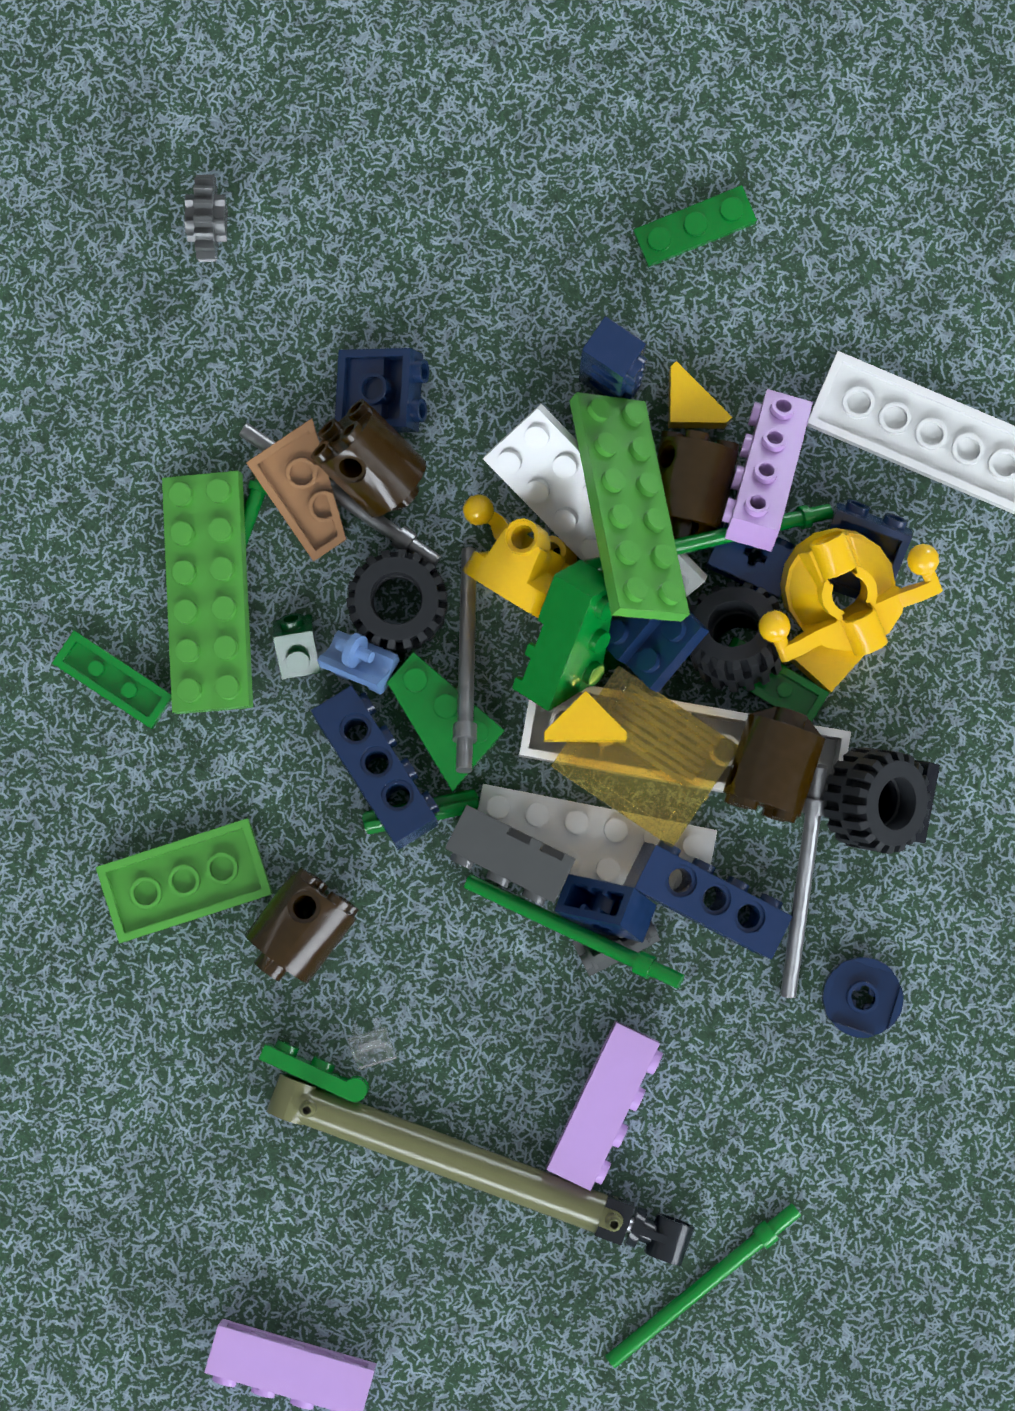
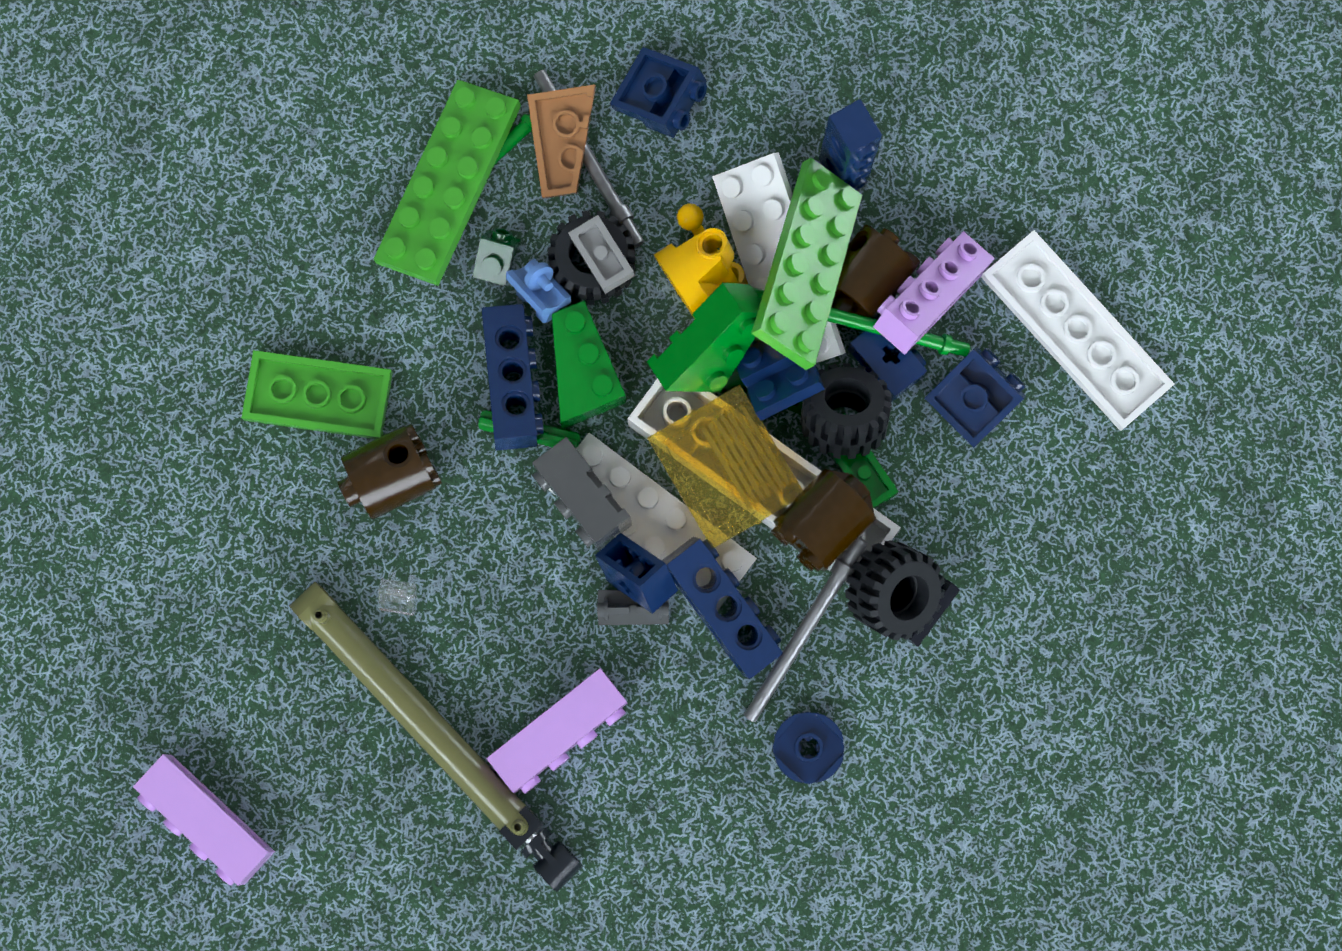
camera: 20 degrees right, 5 degrees down
(112, 679) = (341, 214): green plate -> none
(317, 1072) = (345, 594): green plate -> none
(369, 460) = (623, 137): dark brown cylinder -> none
(409, 597) = (601, 254): none -> light grey plate
(465, 729) = (594, 375): flat silver bar -> none
(585, 723) = (690, 414): yellow slope -> none
(642, 963) = (642, 629): green bar -> none
(691, 404) = (899, 216): yellow slope -> none
(694, 226) = (967, 84): green plate -> none
(764, 1235) = (635, 902): green bar -> none
(826, 666) = (908, 468): yellow slope -> none
(865, 622) = (917, 419): yellow piece -> none

